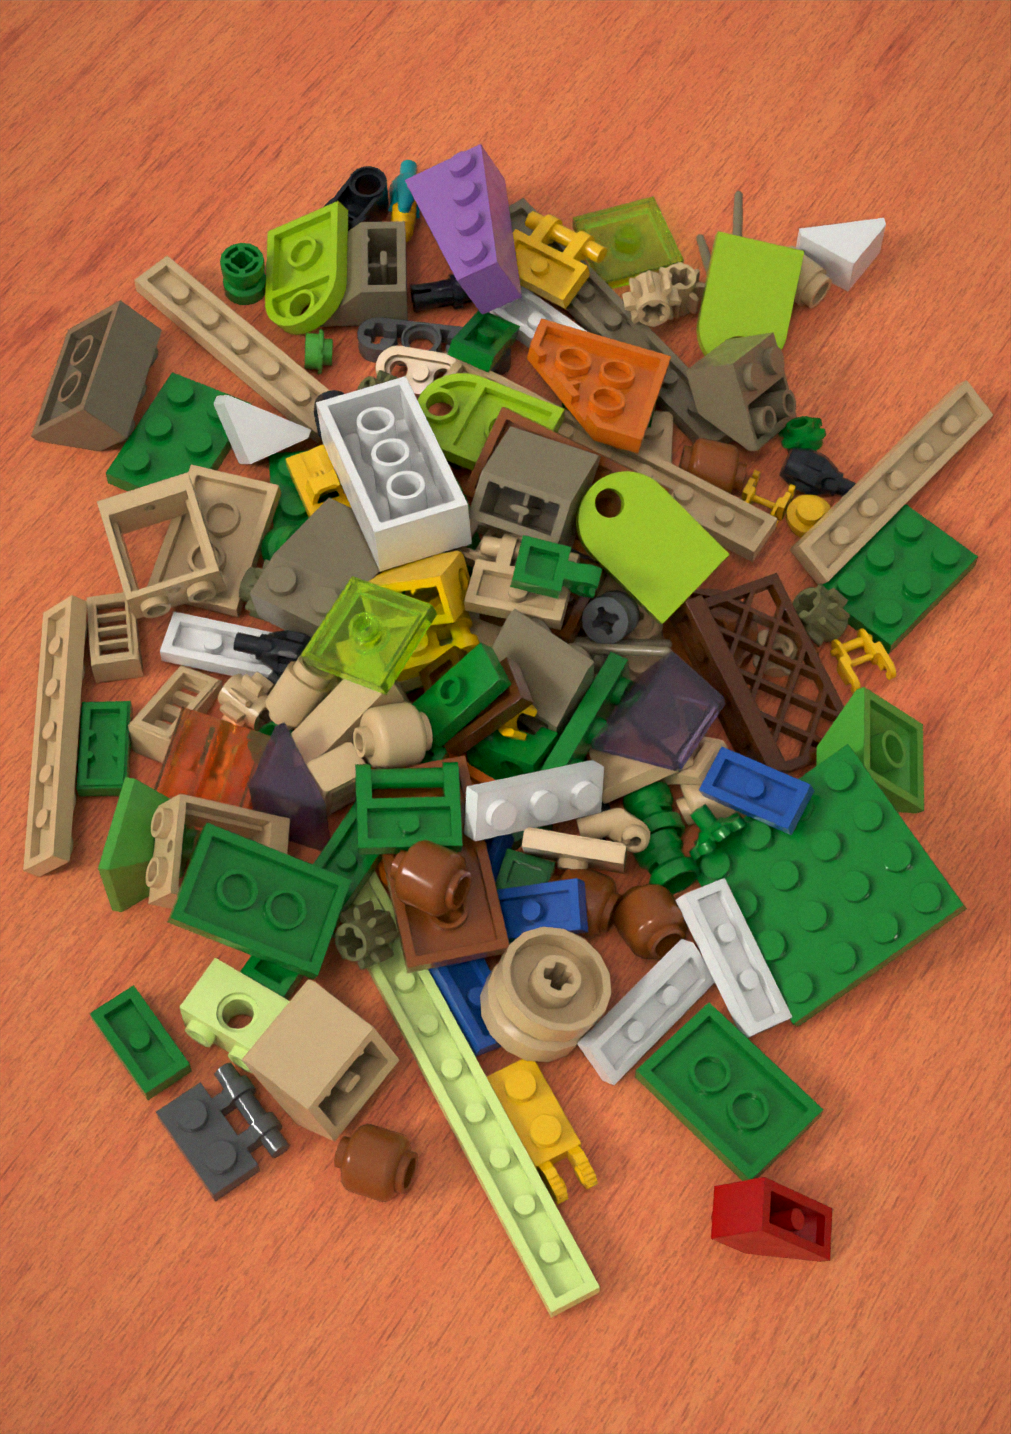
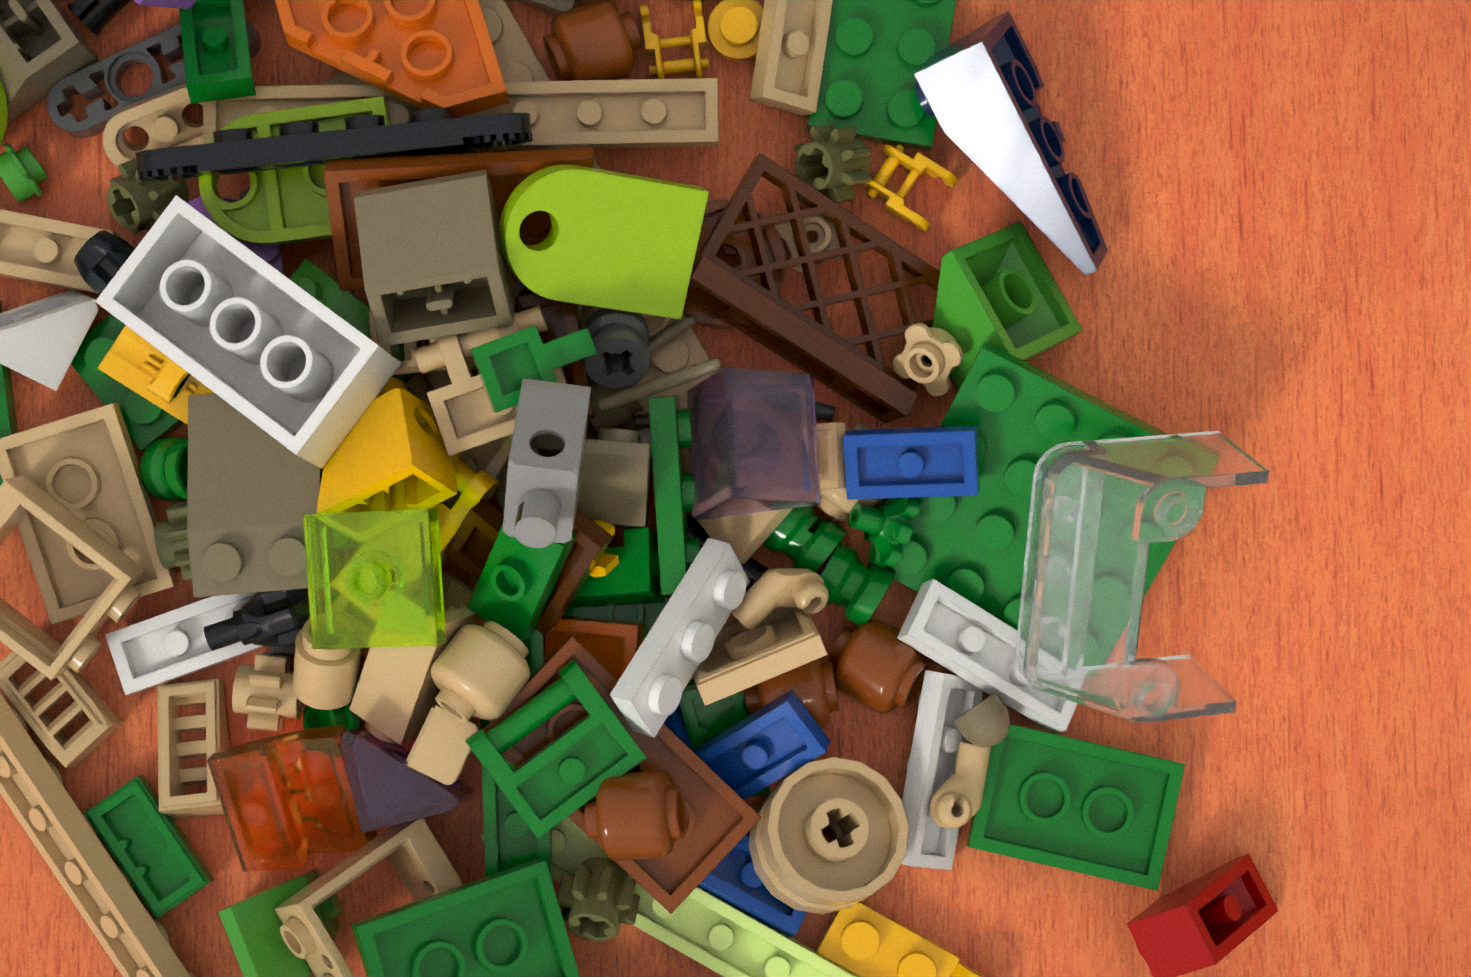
camera: 30 degrees left, 25 degrees up
(486, 396) = (304, 145): none -> black plate
(517, 623) = (542, 489): none -> light grey torso
(658, 1029) = (963, 791): none -> tan arm
(700, 987) = (985, 722): none -> dark tan hinge
(819, 748) = (939, 348): none -> tan plate
(824, 919) = (1088, 563): none -> clear windscreen
(948, 634) = (990, 110): none -> wedge

